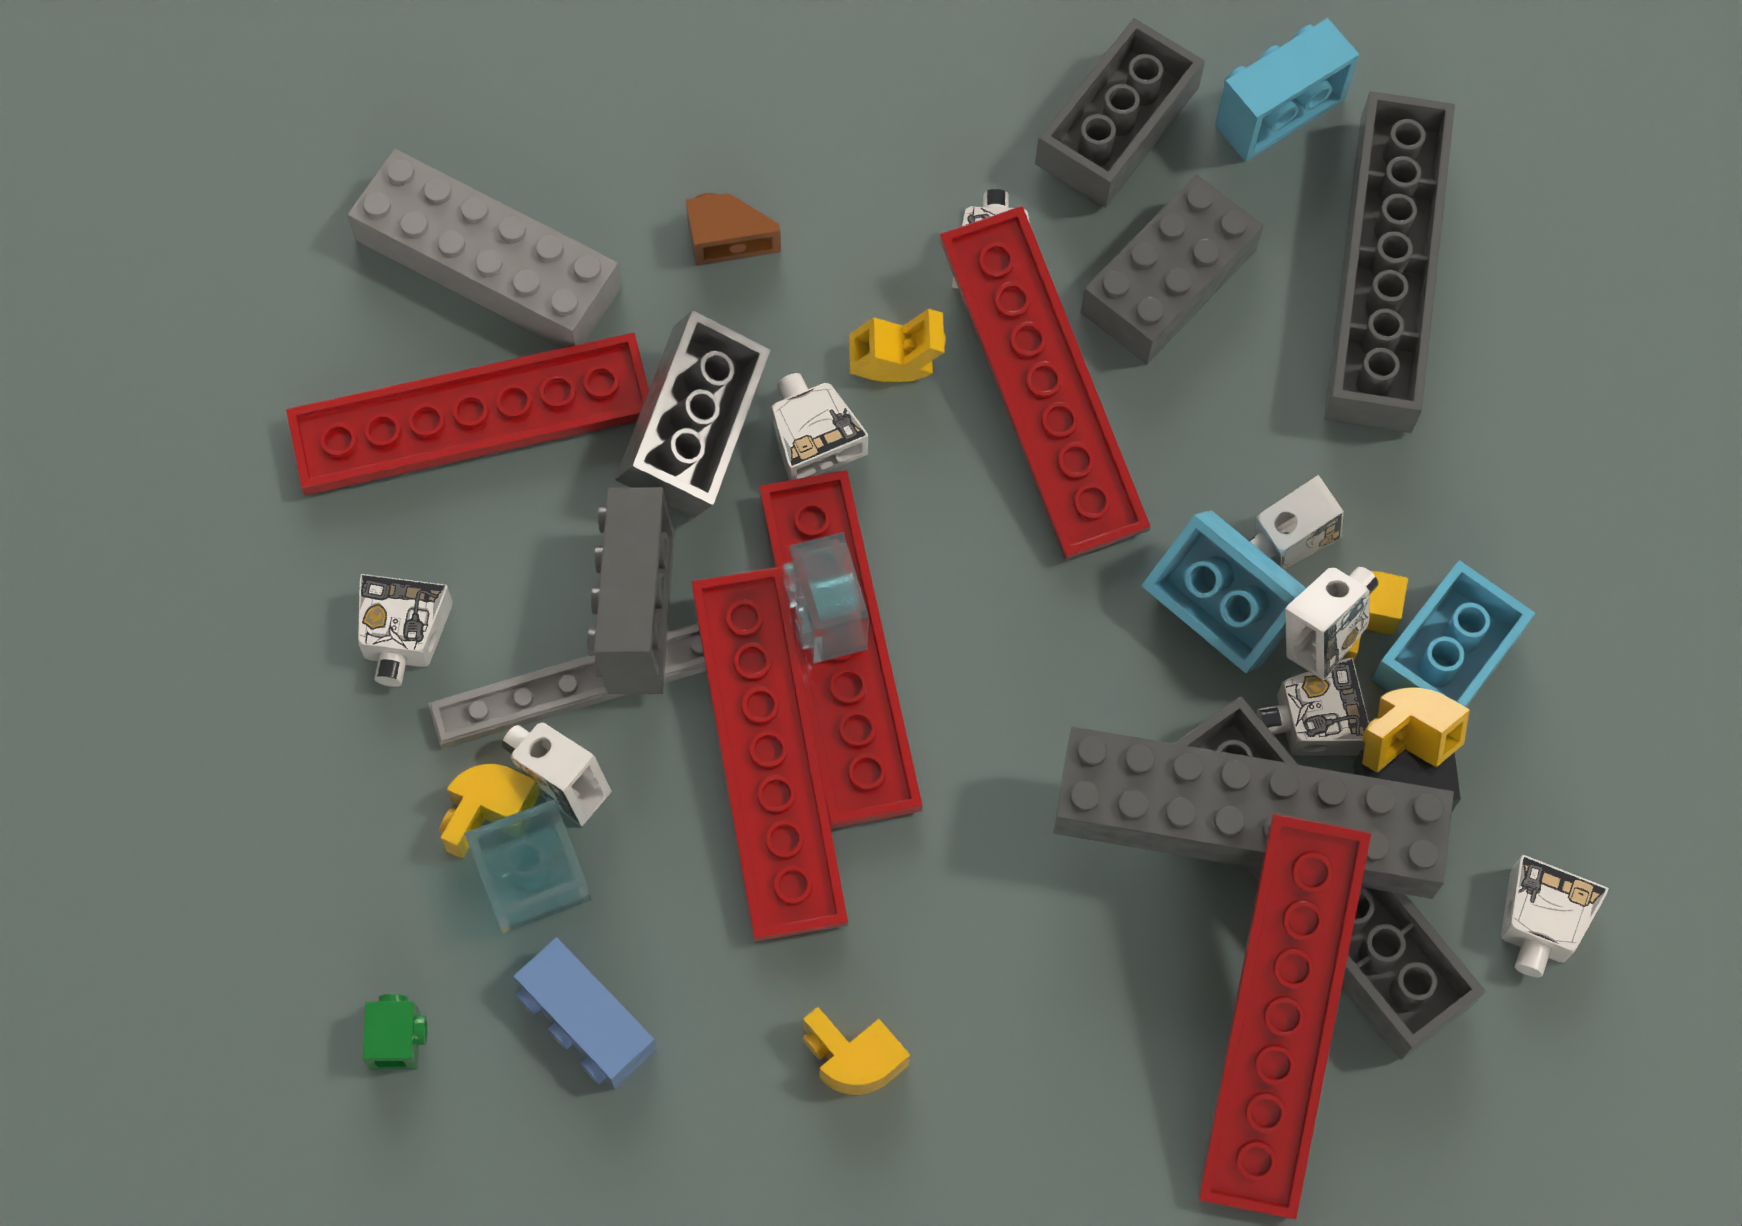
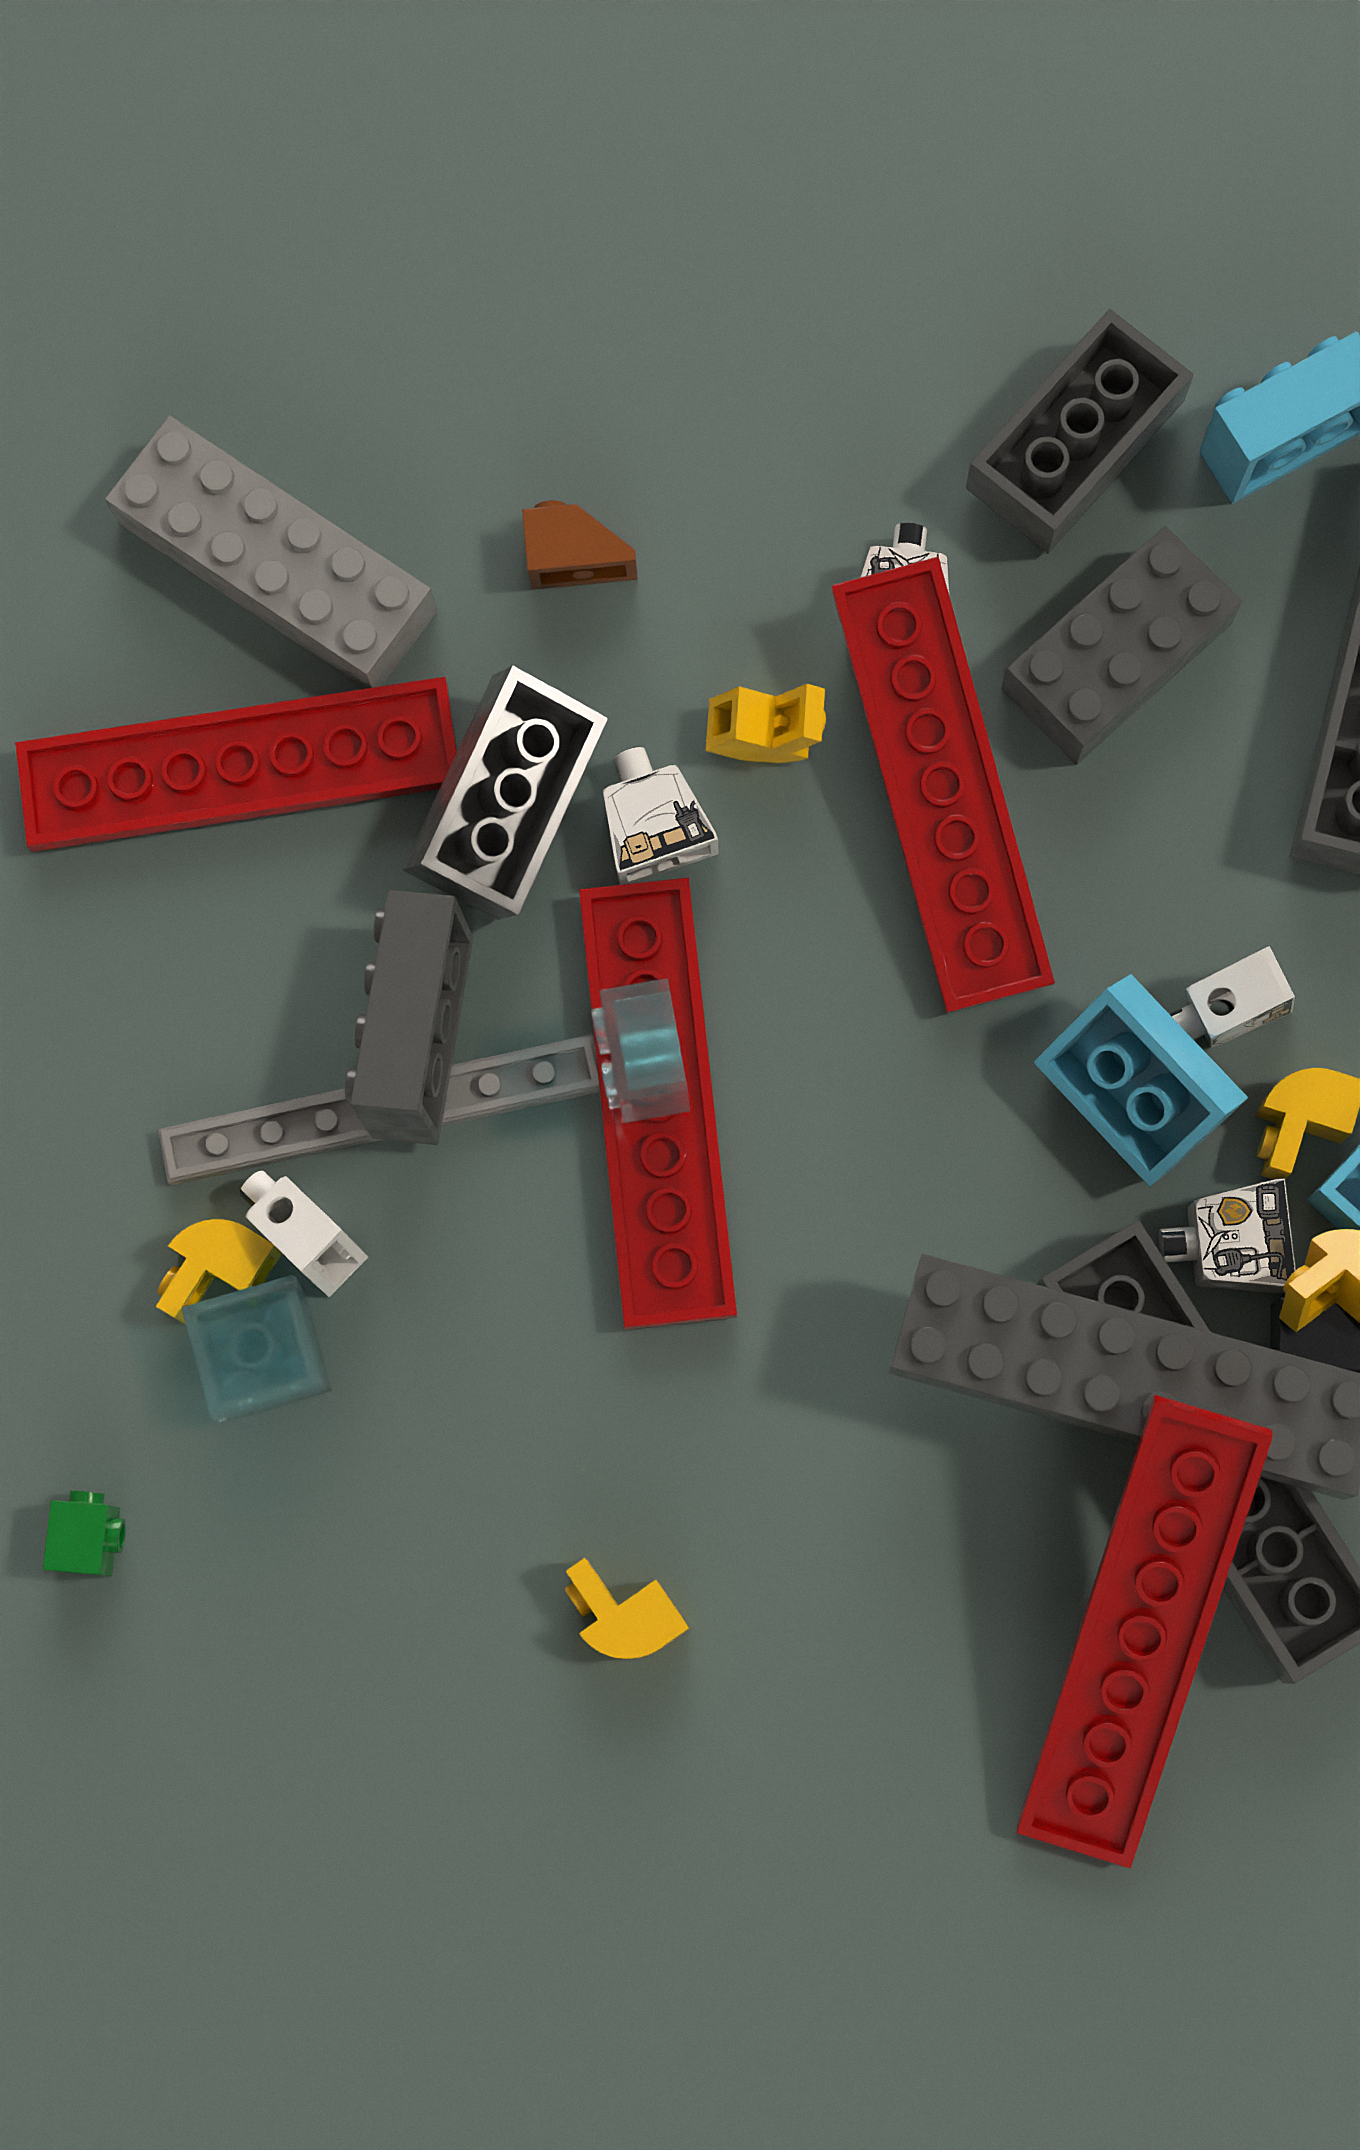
camera: 15 degrees right, 10 degrees up
(400, 623) = (131, 1028): torso -> none
(583, 1014) = (308, 1535): medium blue brick -> none
(769, 755) = (557, 1232): red plate -> none
(1328, 619) = (1260, 1132): white torso -> none

